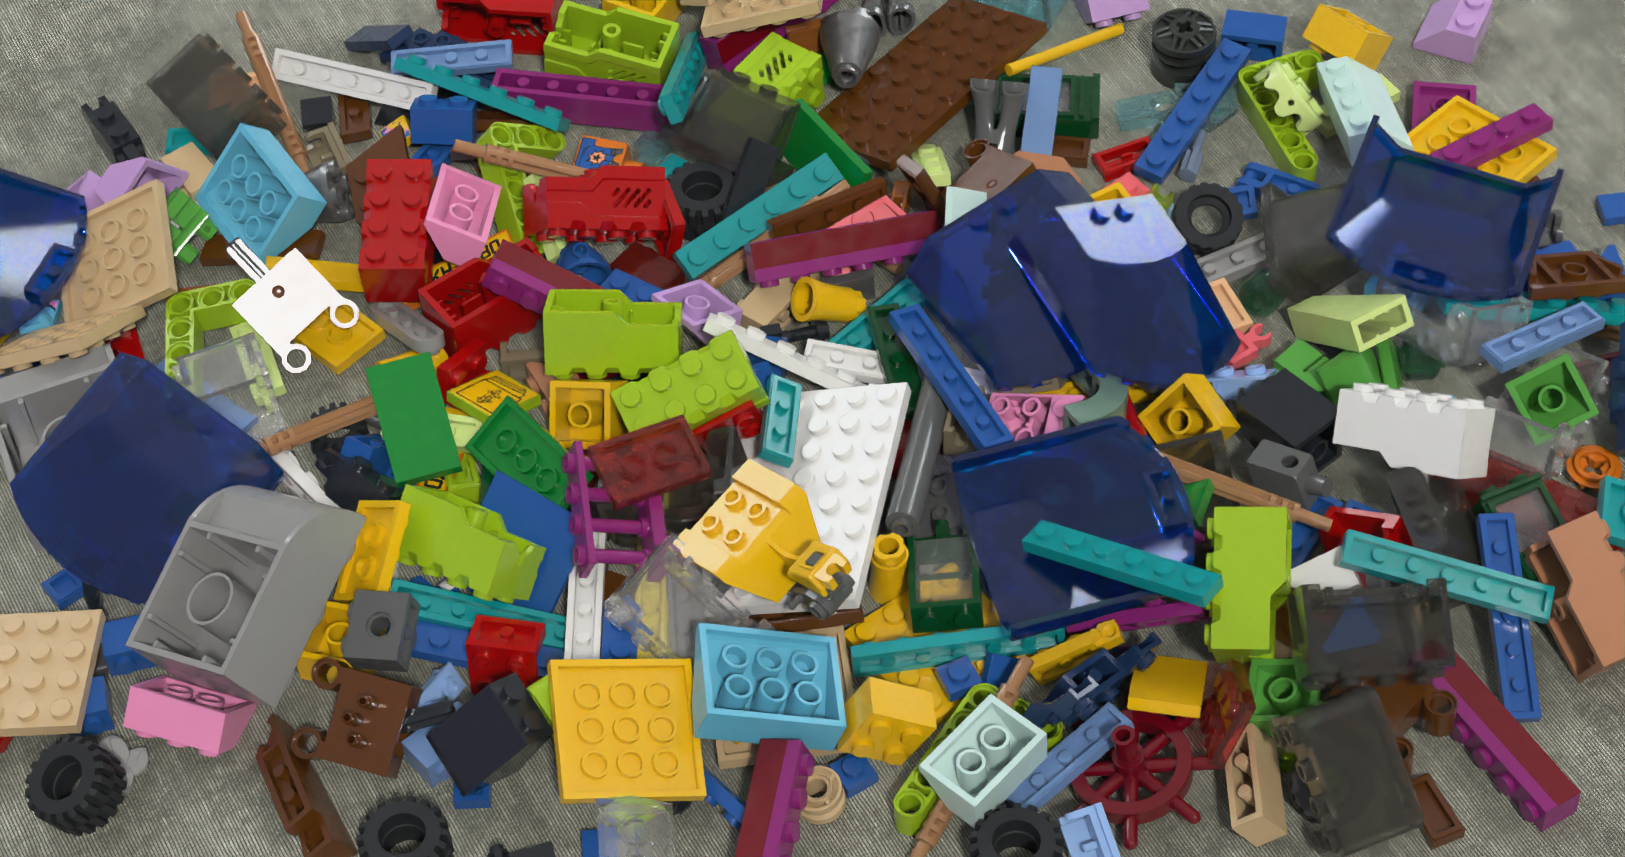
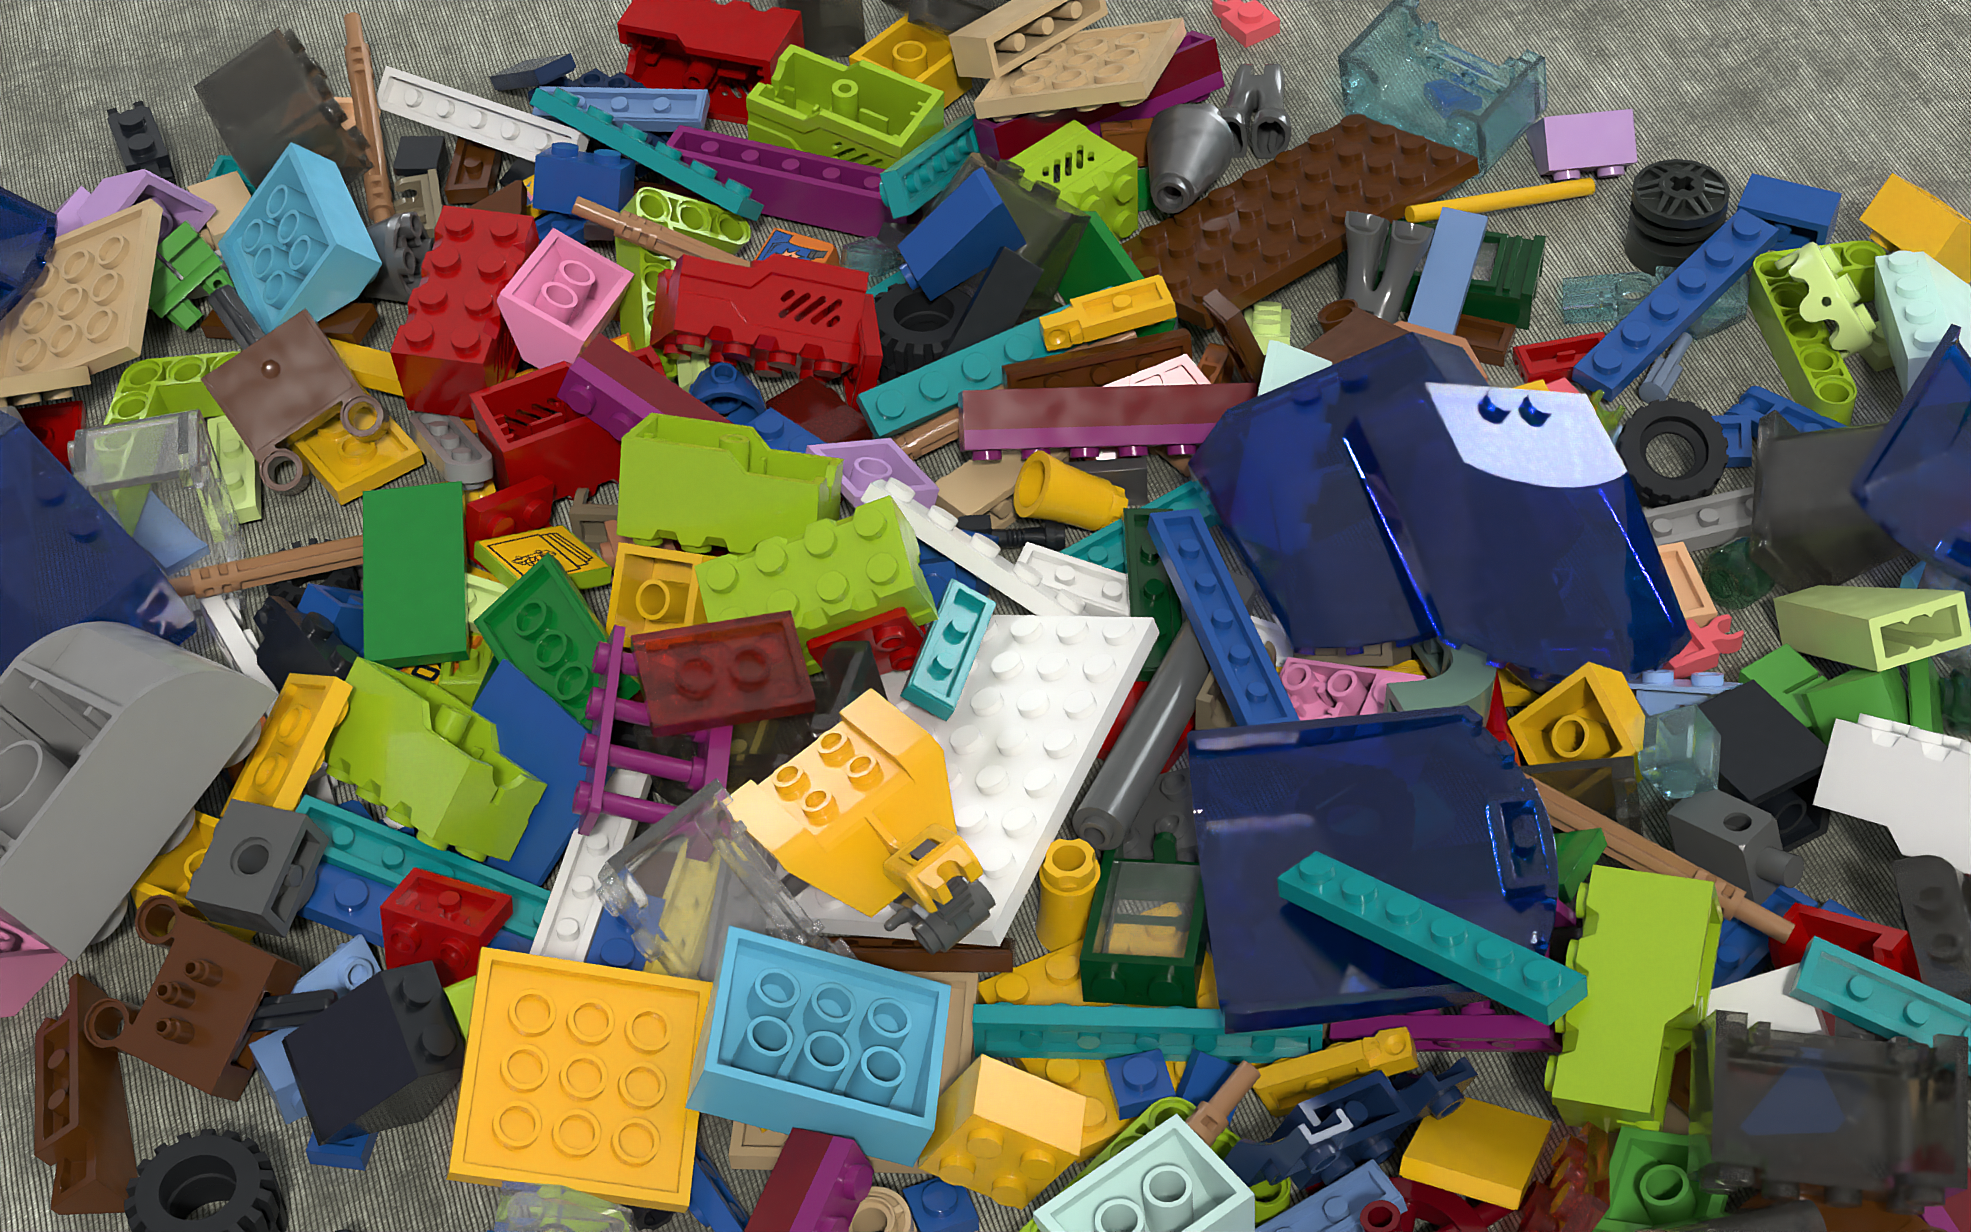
camera: 10 degrees right, 5 degrees down
(719, 134) = (959, 237): none -> blue slope
(830, 173) = (1108, 313): none -> yellow hinge
(1249, 423) = (1680, 753): none -> clear light blue brick

